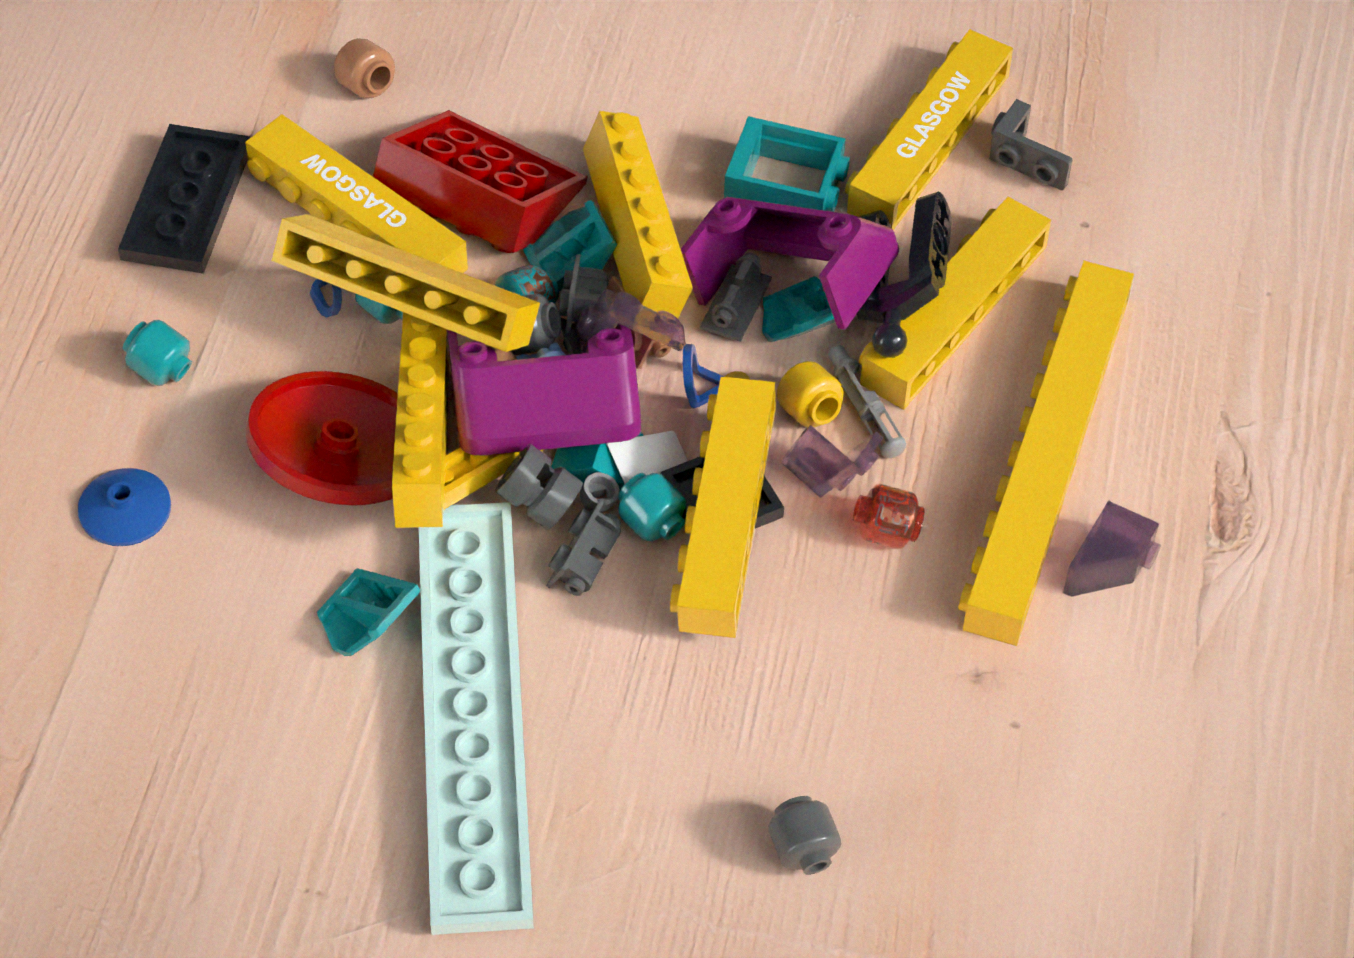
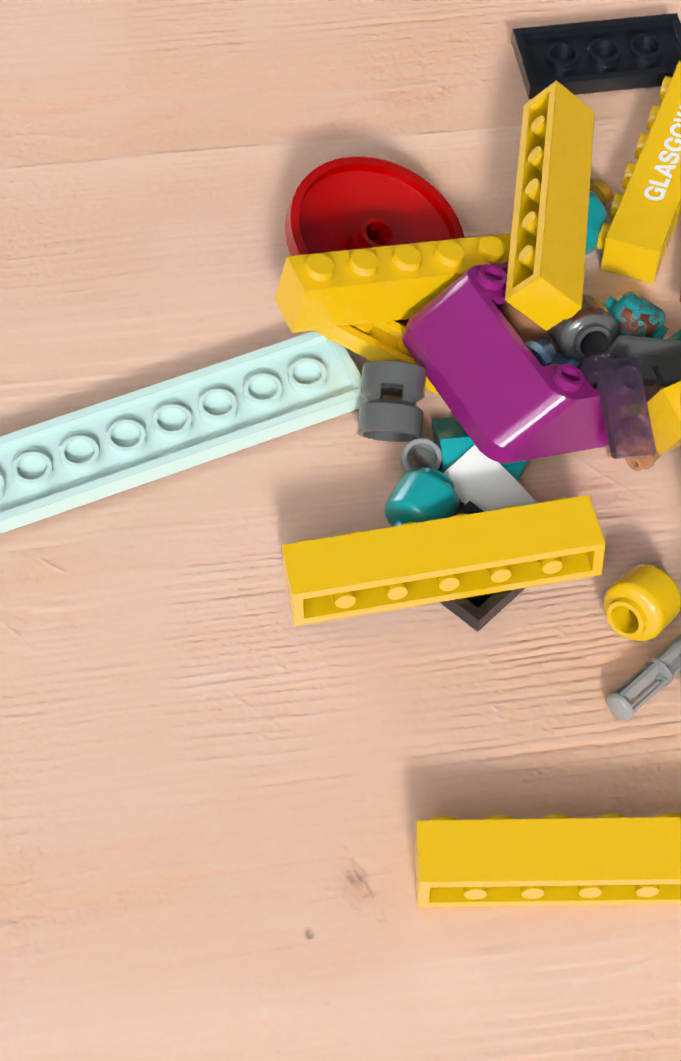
camera: 70 degrees right, 0 degrees up
(125, 520) = (248, 138): blue dish -> none
(157, 352) = (413, 93): teal head -> none
(364, 609) = (206, 328): teal slope -> none
(573, 562) = (331, 466): dark grey hinge -> none
(691, 364) = (627, 540): blue piece -> none
(804, 835) = (72, 754): dark grey head -> none
(825, 466) = (557, 638): bracket -> none
(889, 516) = (515, 721): clear red head -> none
(1113, 551) = (577, 963): clear purple slope -> none

